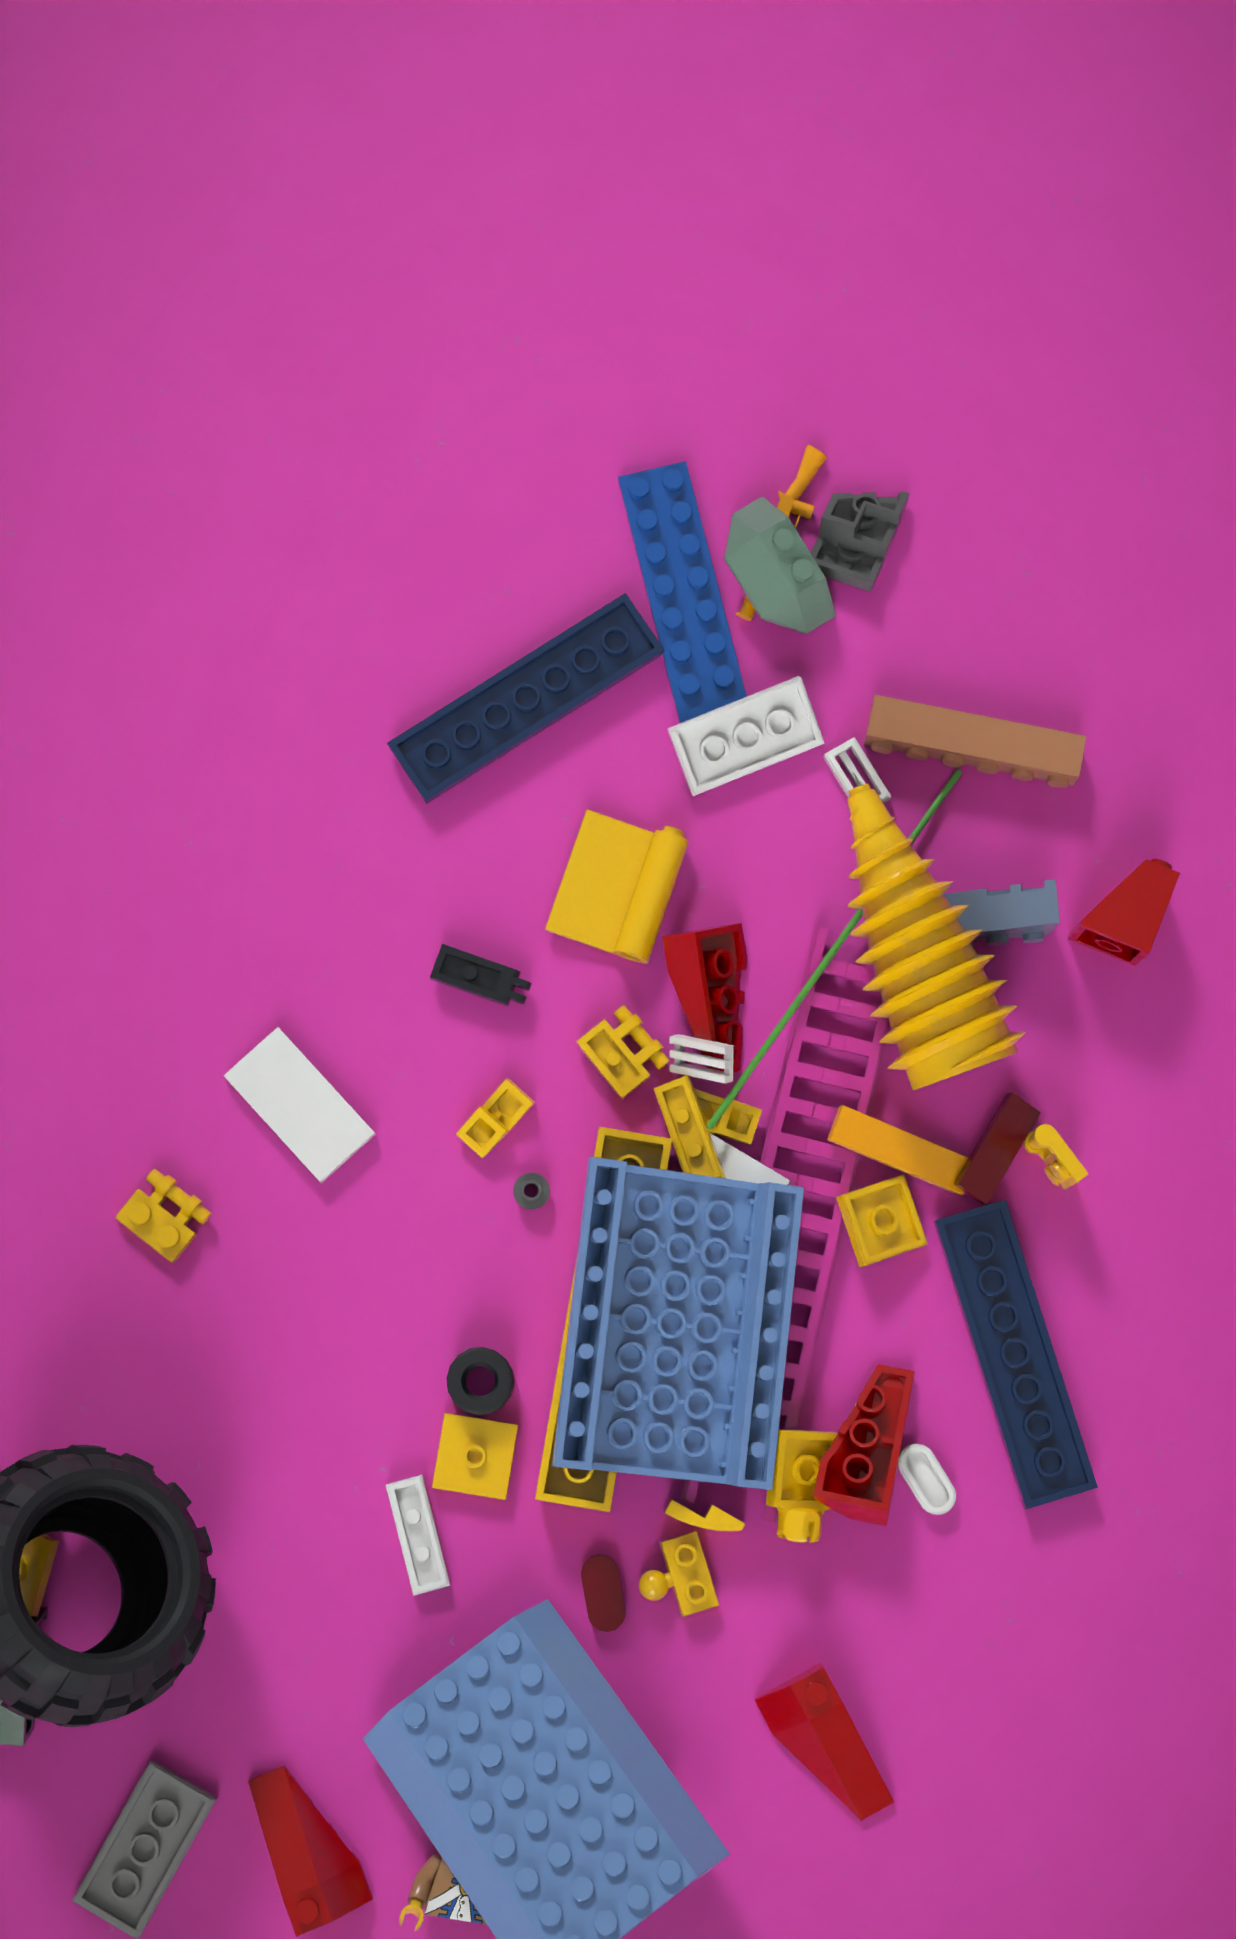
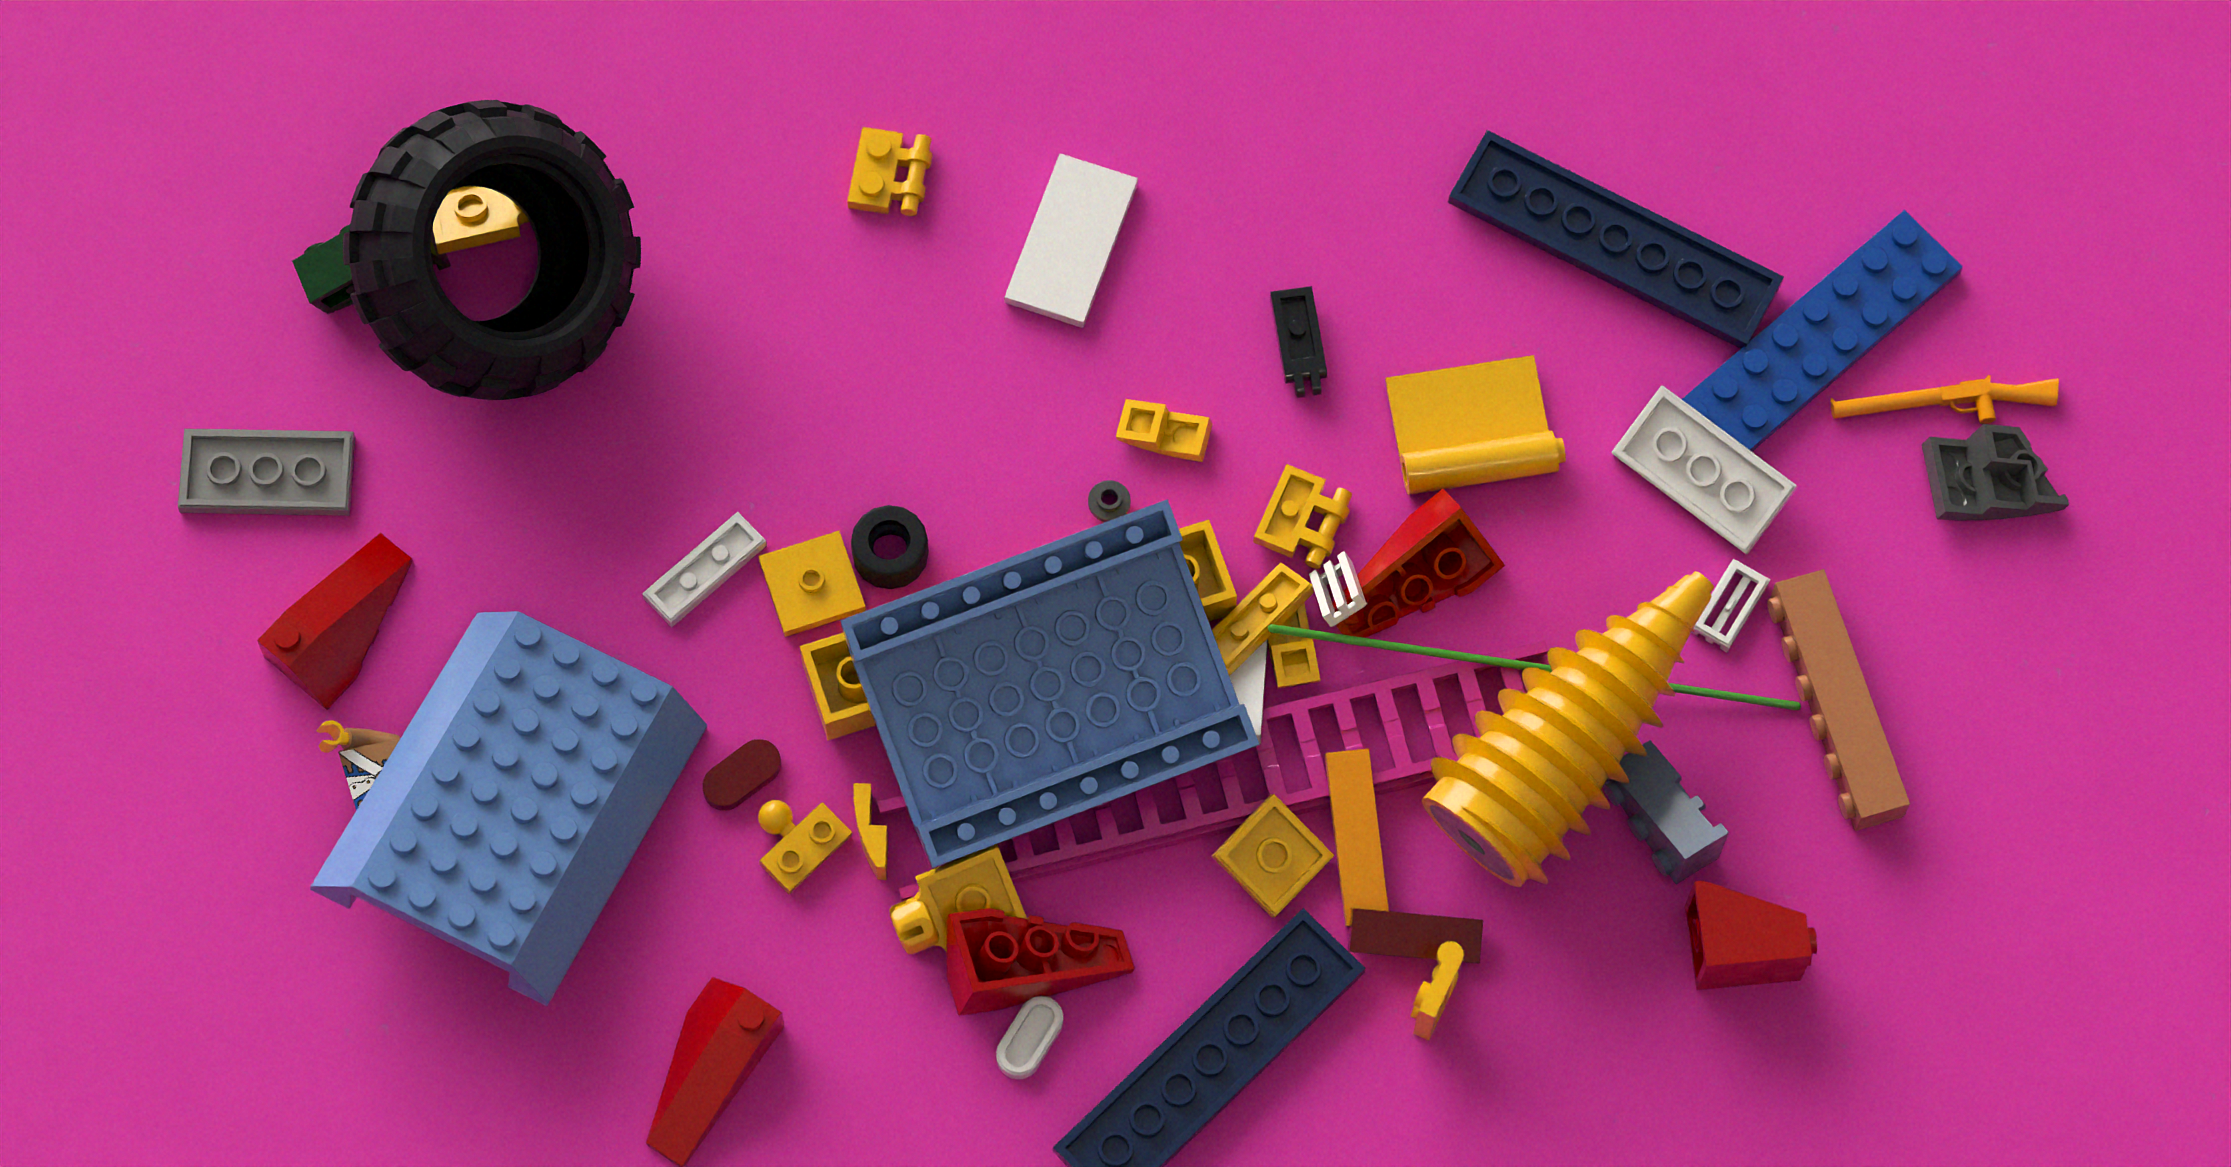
camera: 60 degrees right, 10 degrees down
(777, 569) = (1897, 409): sand green wedge -> none

